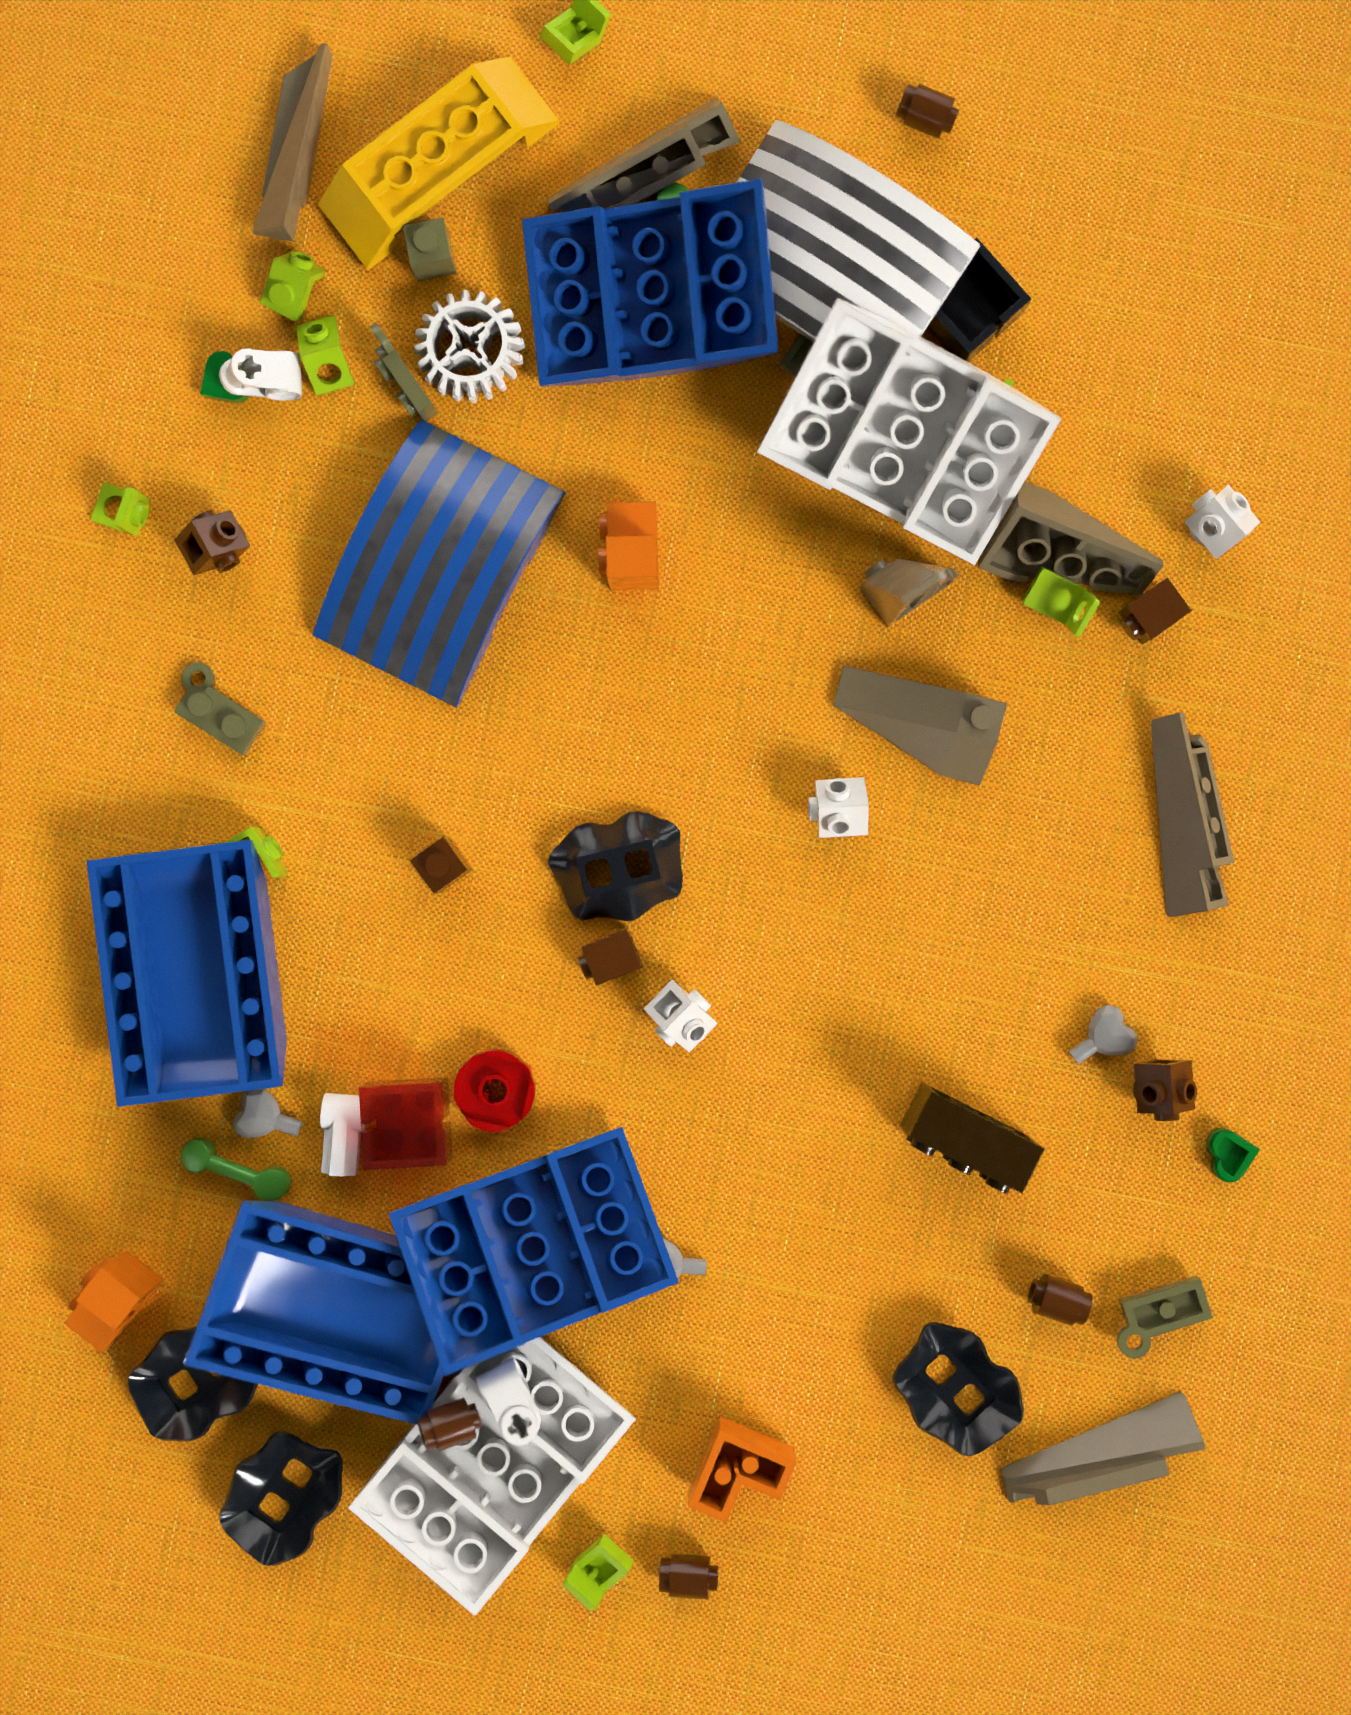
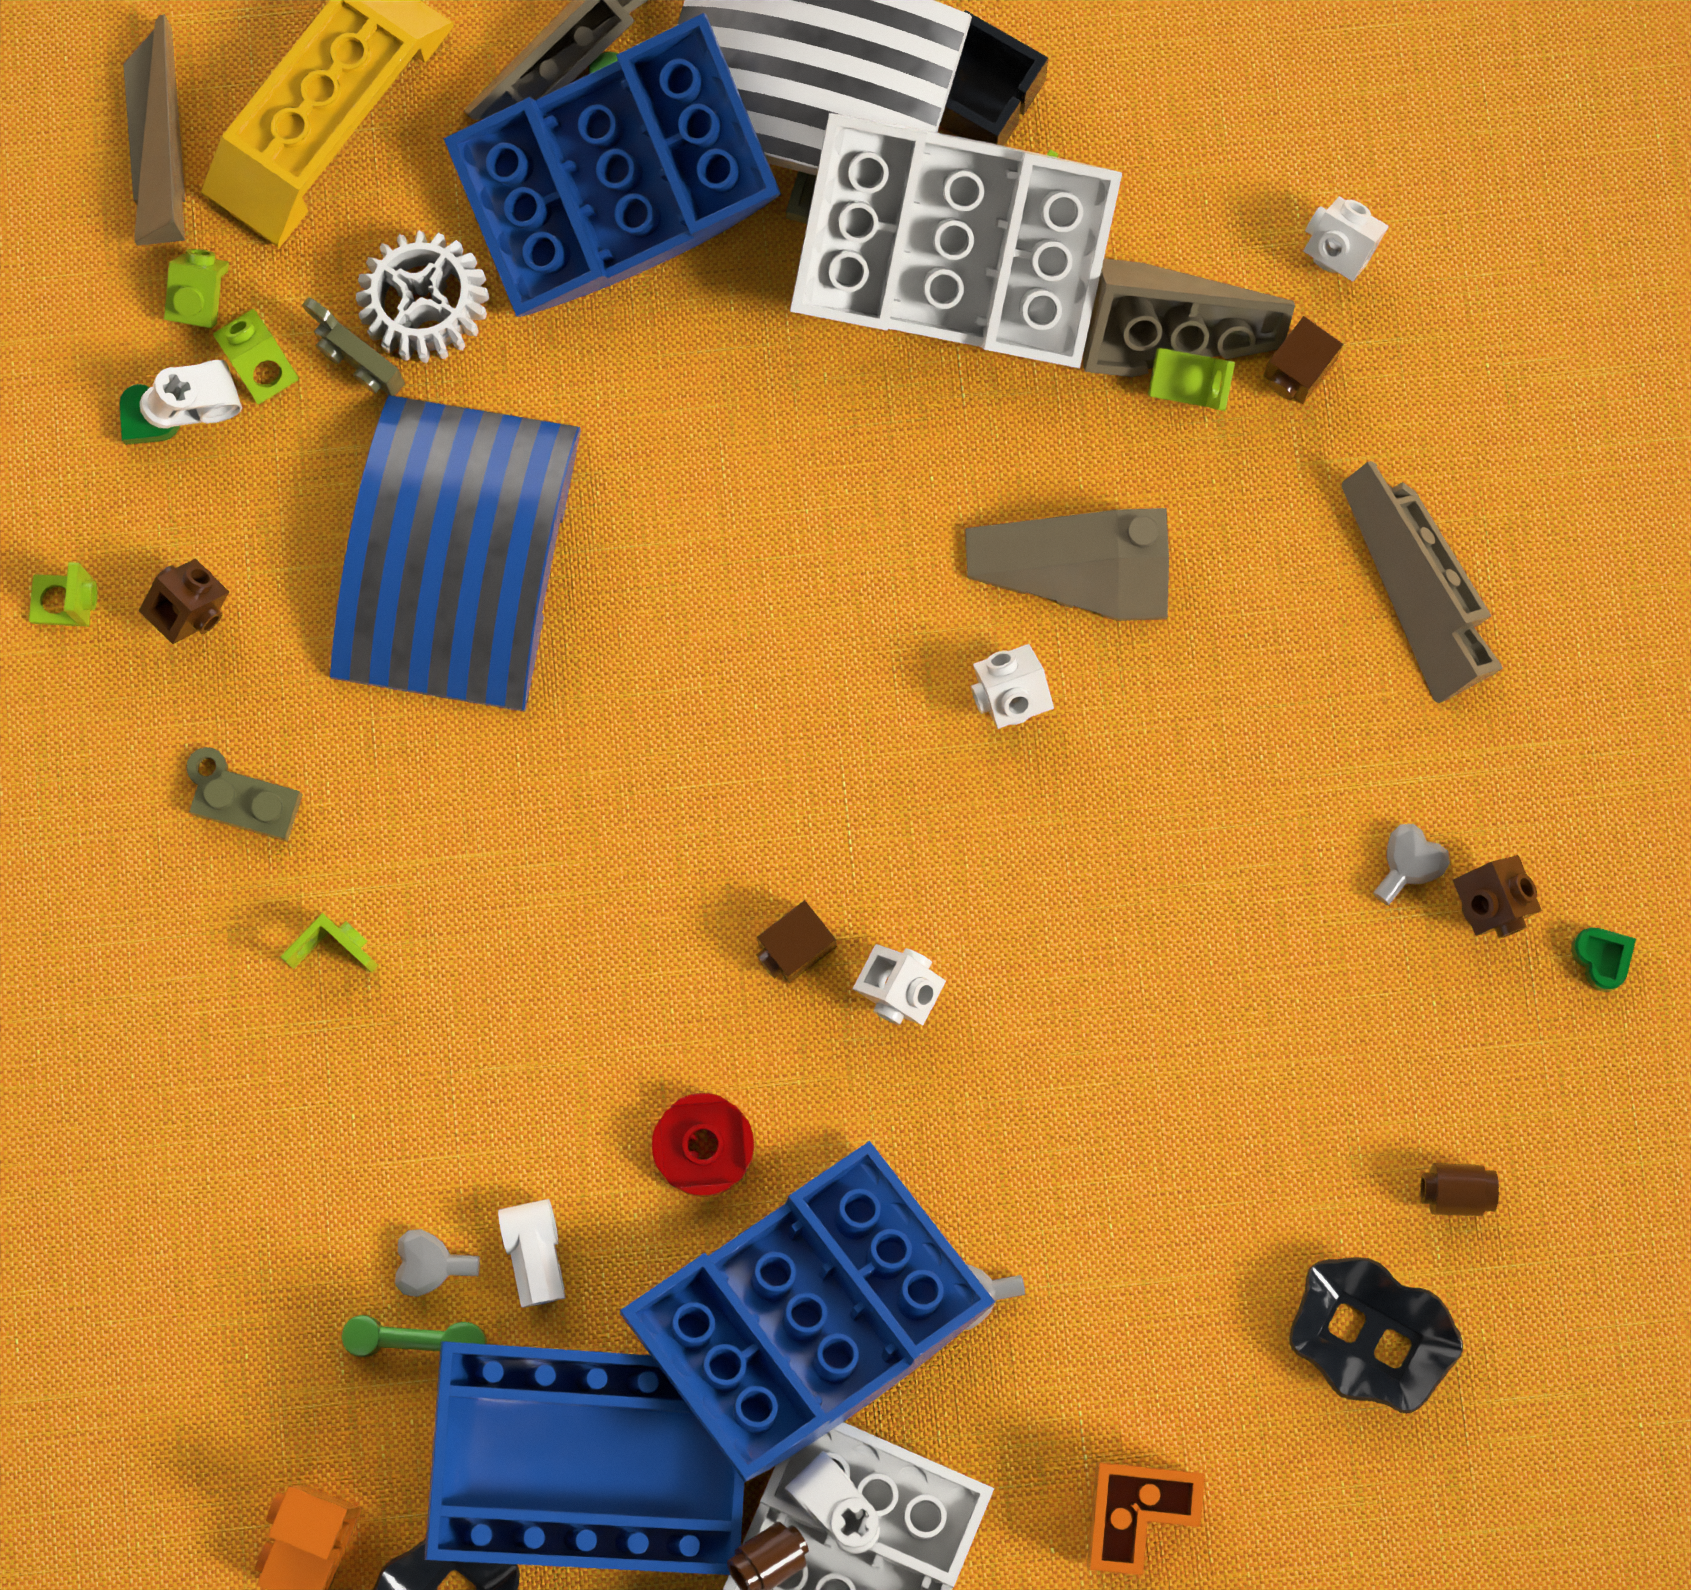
camera: 15 degrees left, 10 degrees down
(188, 972) = (292, 1107): blue slope -> none
(407, 1123) = (607, 1211): clear red piece -> none
(429, 249) = (346, 203): olive brick -> none
(441, 865) = (561, 894): reddish brown brick -> none
(625, 896) = (791, 865): black piece -> none
(631, 546) = (679, 464): orange brick -> none
(903, 586) = (1008, 414): dark tan wedge -> none
(970, 1140) = (1288, 1022): dark brown brick -> none
(1108, 1455) = (1578, 1363): dark tan wedge -> none
(1161, 1312) = (1586, 1167): olive hinge -> none

